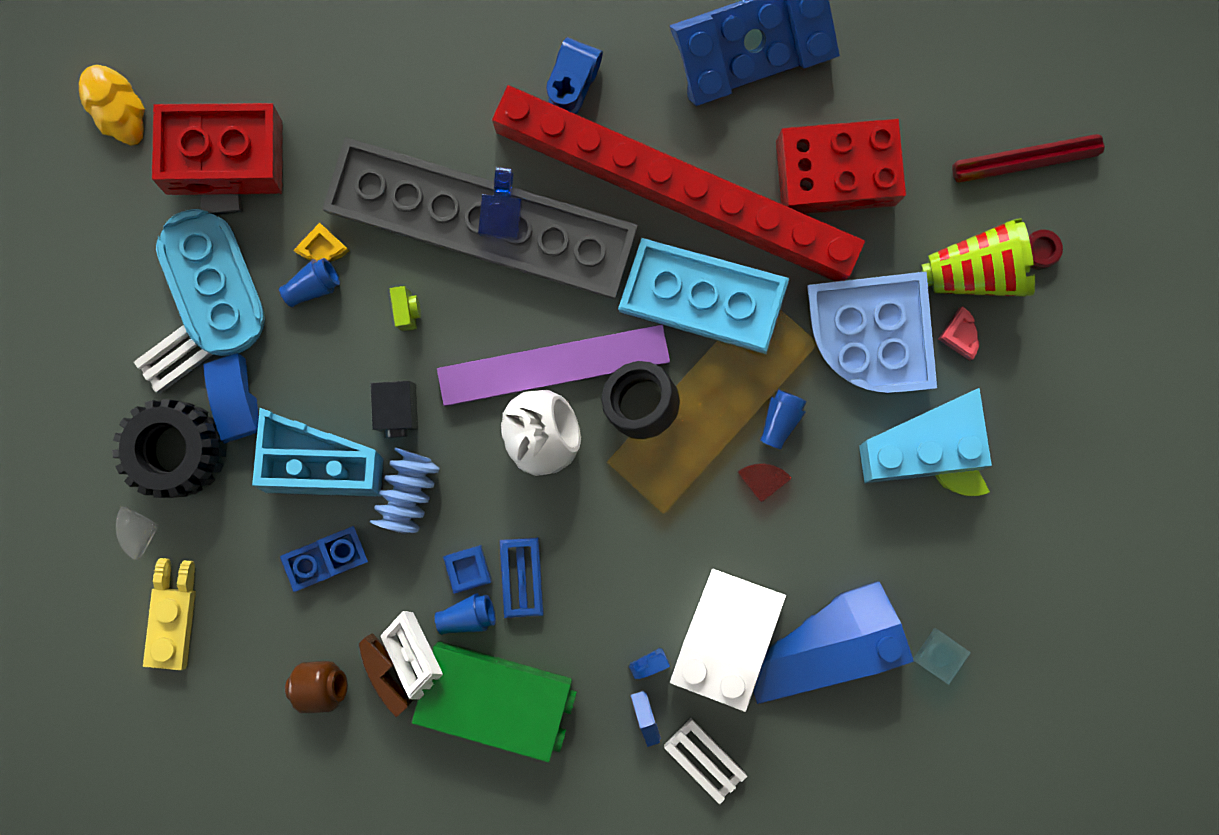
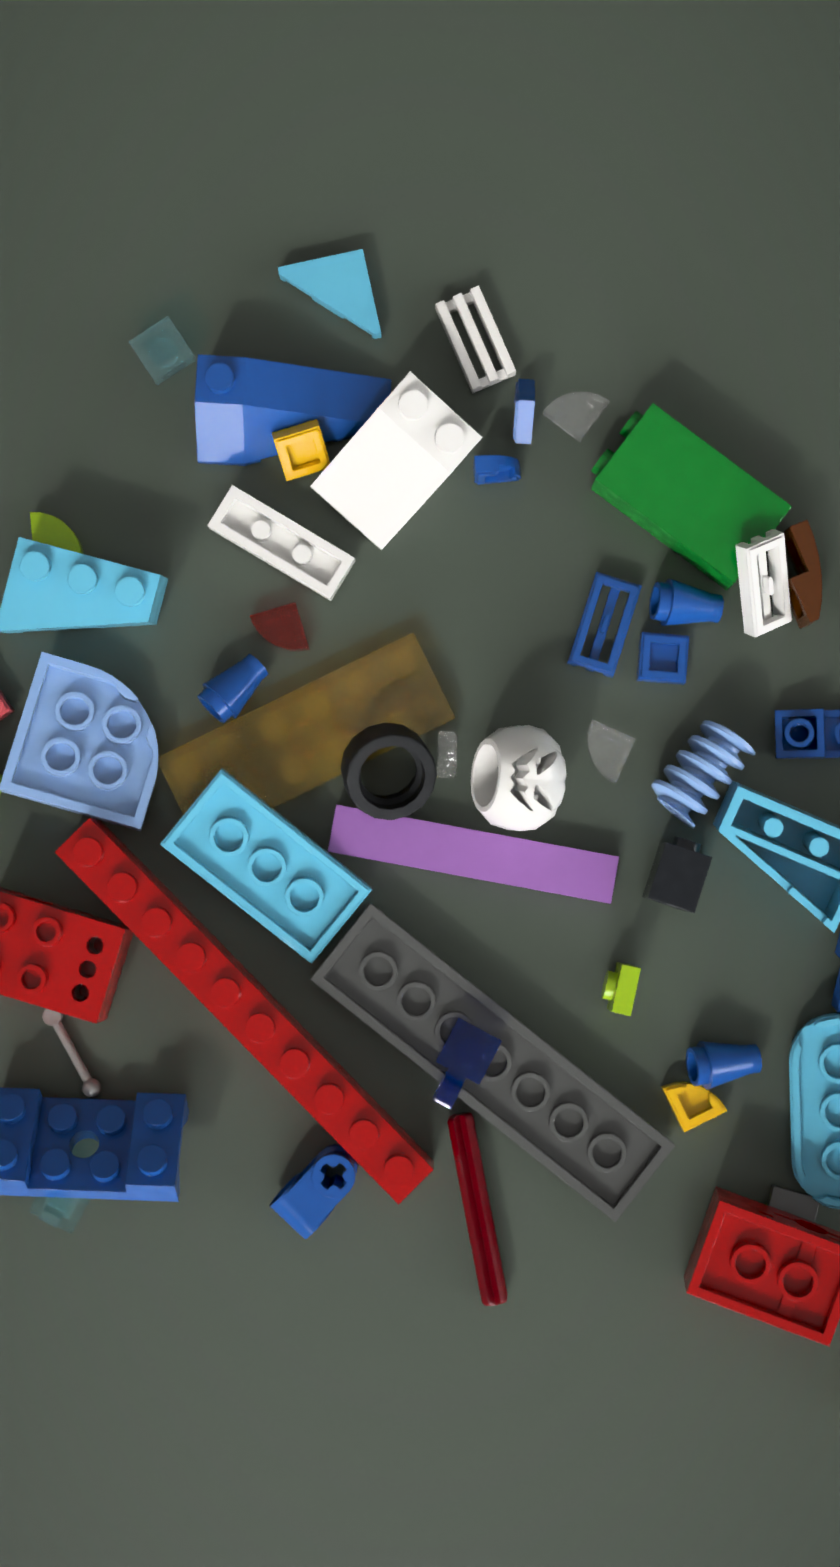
camera: 160 degrees left, 0 degrees up
(450, 109) = (477, 1209): none -> dark red axle
(482, 483) = (608, 749): none -> clear tile
(602, 431) = (446, 754): none -> clear tile
(605, 734) = (576, 412): none -> clear tile
(767, 87) = (91, 1086): none -> light grey hinge
(790, 543) = (281, 543): none -> white plate
(804, 620) = (301, 449): none -> yellow tile
(827, 761) = (338, 285): none -> medium azure tile

